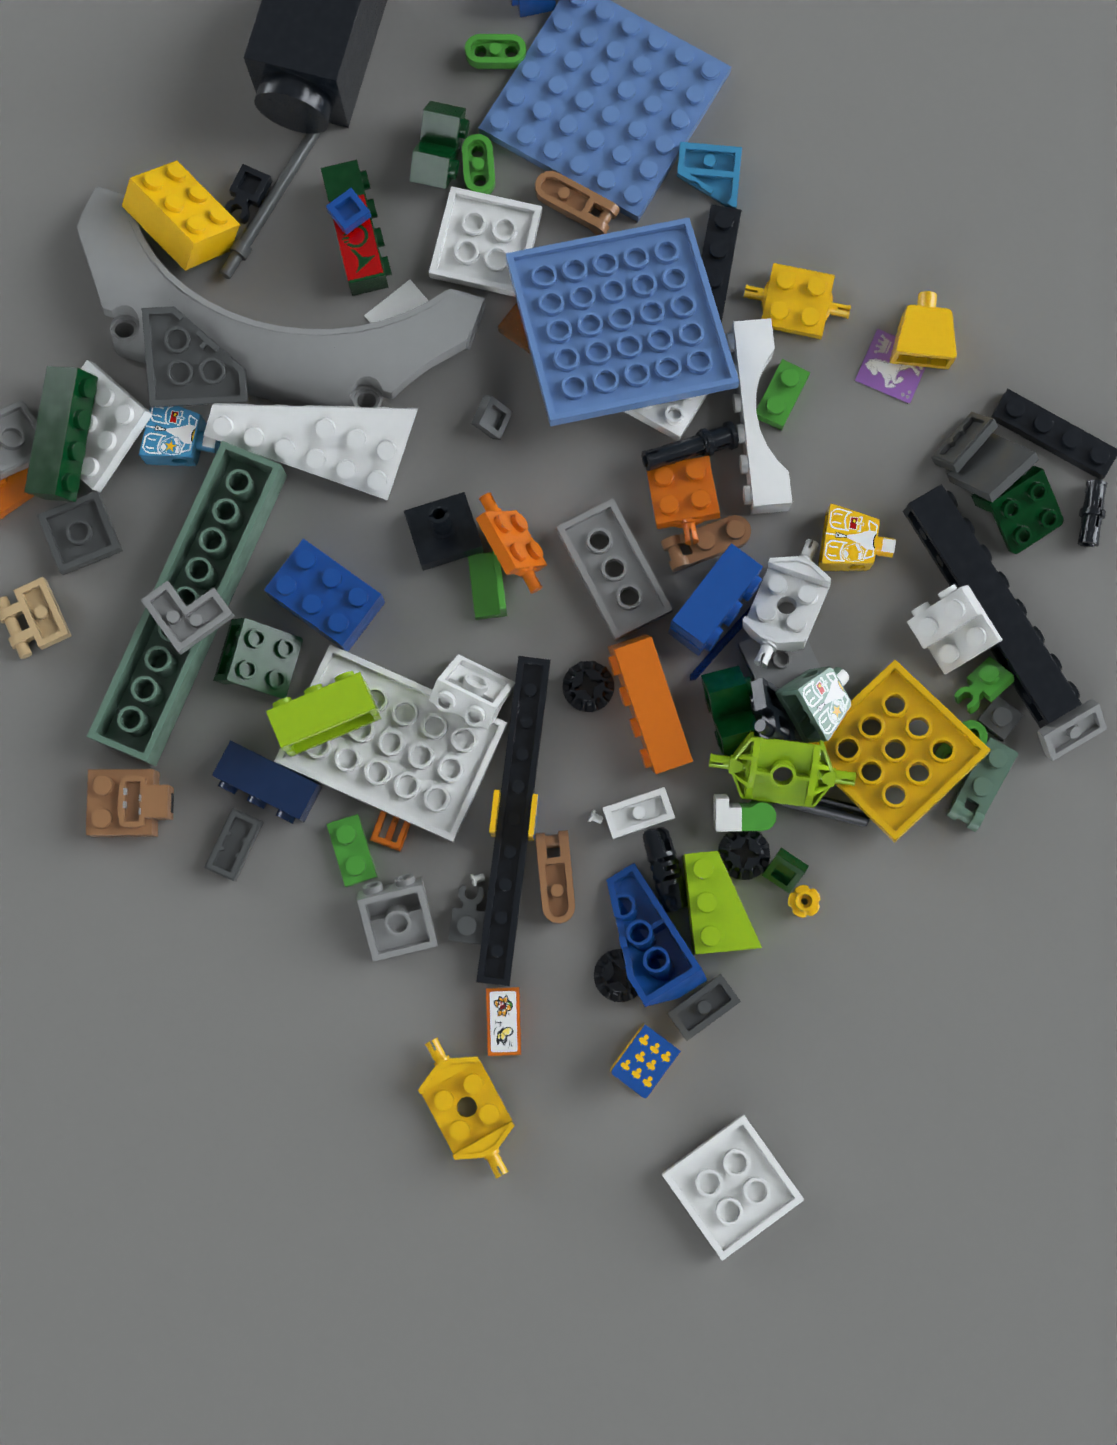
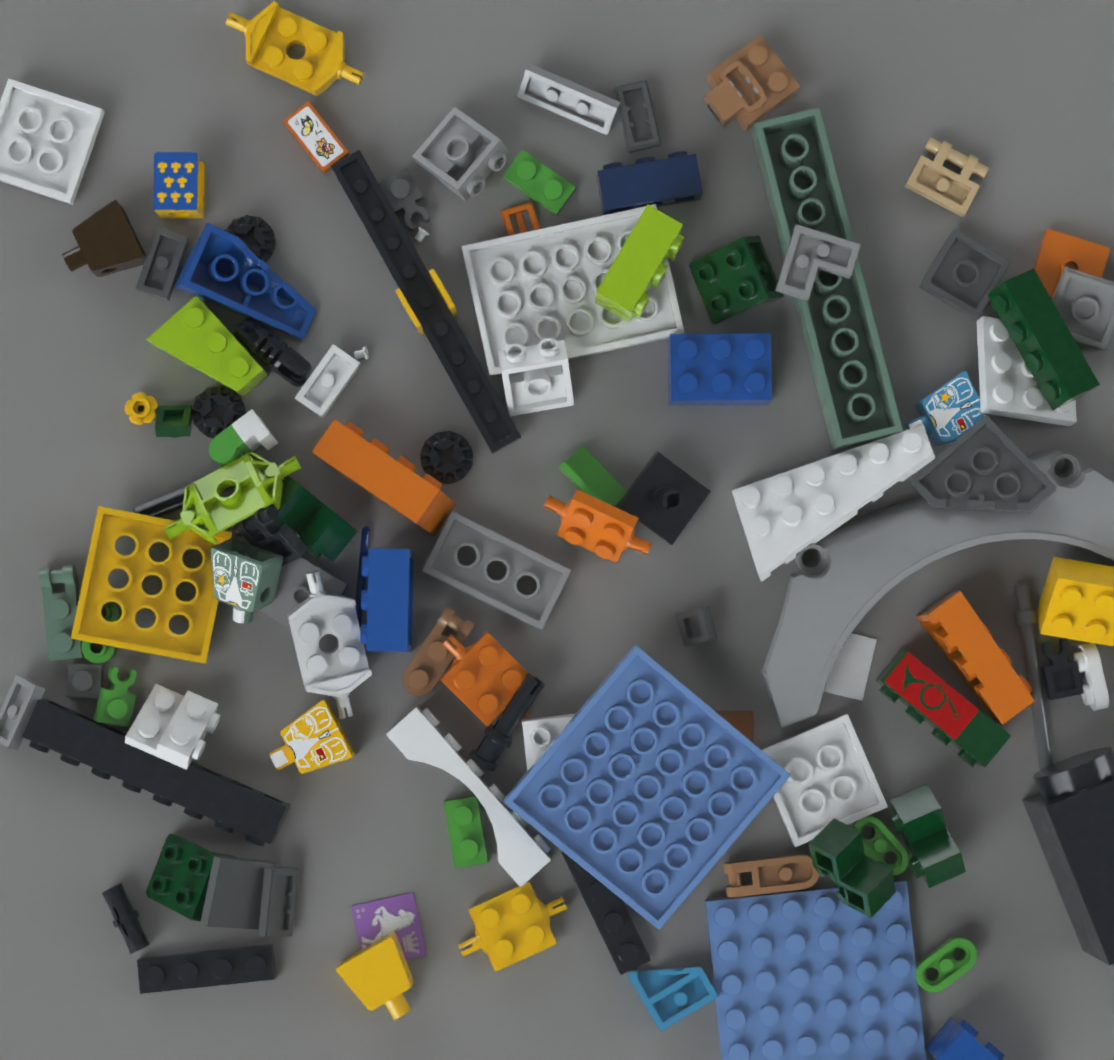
camera: 140 degrees right, 5 degrees up
(226, 170) = (1093, 676): none -> white plate
(277, 899) = (568, 99): none -> light grey plate
(300, 246) = (976, 656): none -> orange wedge
(348, 211) = (953, 710): blue plate -> none
(512, 147) = (860, 880): none -> dark green brick
(555, 877) = (357, 280): medium nougat plate -> none
(738, 1058) = (106, 243): none -> dark brown torso

